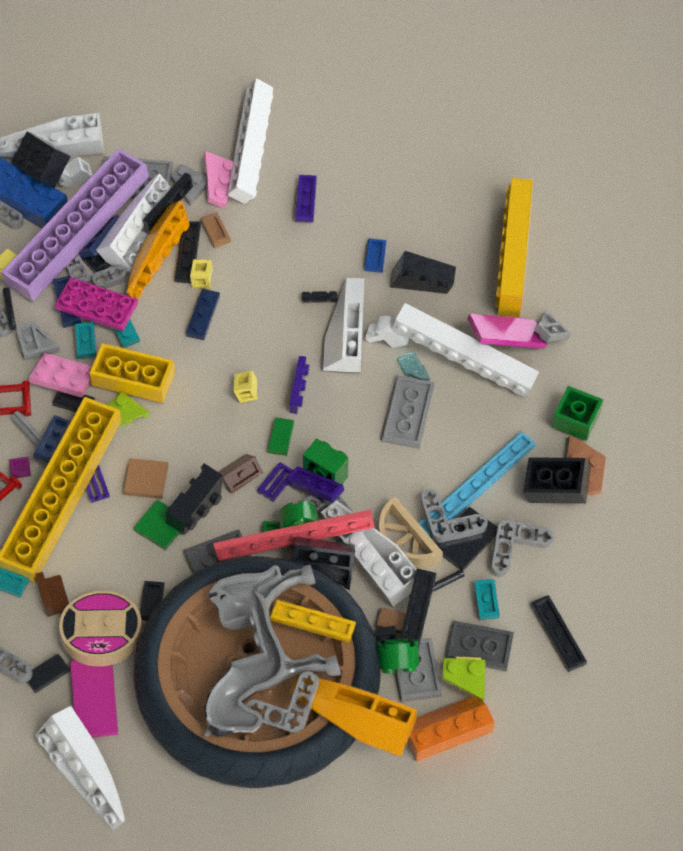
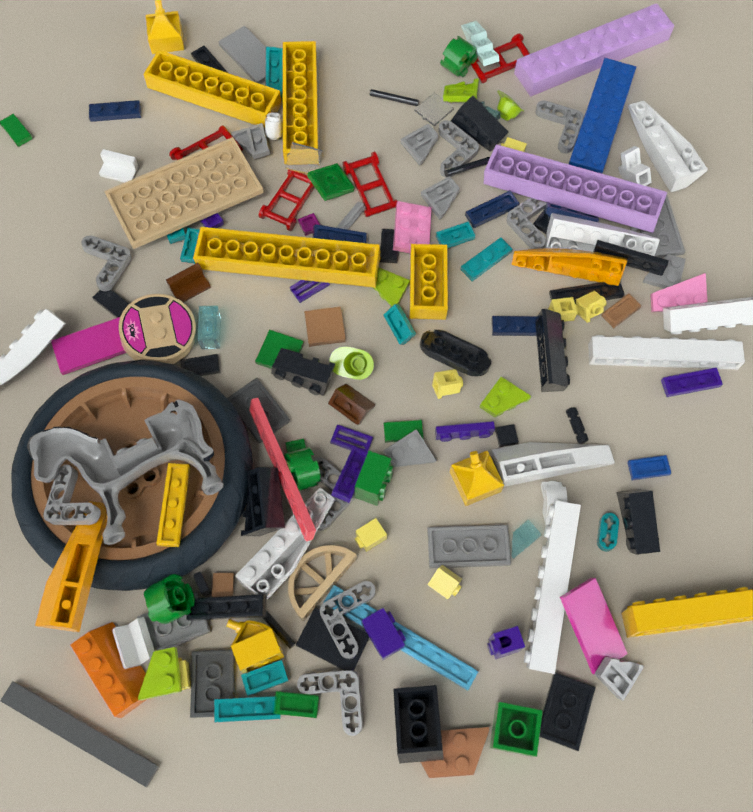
camera: 75 degrees right, 10 degrees up
(40, 159) = (629, 135): black brick -> none
(96, 304) = (494, 231): dark pink tile -> none
(113, 579) = (209, 327): none -> clear light blue brick
(168, 411) = (399, 324): none -> teal plate
(200, 451) = (352, 363): none -> lime piece
(205, 249) = (590, 305): none -> light yellow brick
(215, 371) = (455, 352): none -> black tile
(243, 293) = (551, 351): none -> black slope
(271, 209) = (666, 352): none -> white brick
(273, 347) = (503, 397): none -> lime wing
(303, 433) = (410, 451): none -> light grey wing
(312, 353) = (506, 435): none -> black tile
(348, 386) = (476, 477): none -> yellow piece
(377, 484) = (370, 535): none -> light yellow brick
(425, 302) = (612, 532): none -> teal beam
(428, 699) = (134, 643): none -> white panel
(438, 434) = (445, 582): none -> light yellow brick
(457, 595) = (254, 645): none -> yellow piece
(473, 491) = (383, 633): none -> dark purple brick
(497, 769) = (80, 734): none -> dark grey tile
(503, 404) = (505, 643): none -> dark purple brick
(511, 616) = (244, 709): none -> teal plate
(516, 577) = (296, 704): none -> green tile
(558, 633) = (243, 765): black tile -> none
(563, 372) = (566, 711): none -> black tile

